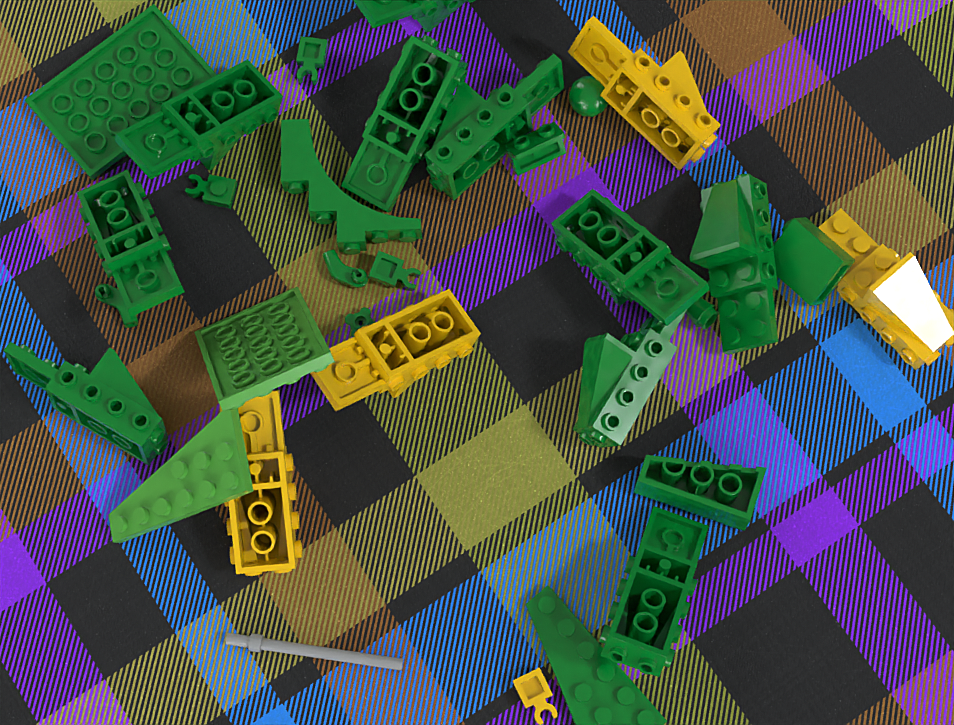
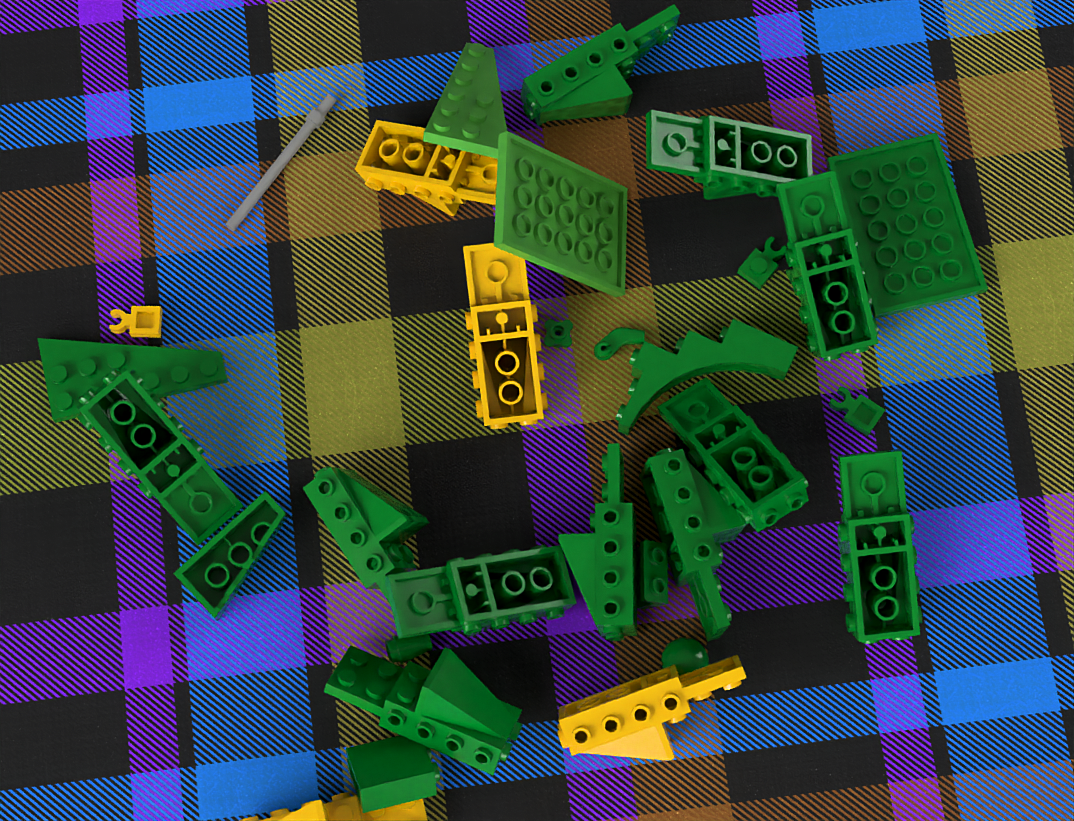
camera: 115 degrees right, 0 degrees up
(389, 270) = (597, 381): green plate -> none
(544, 179) = (607, 558): none -> green wedge

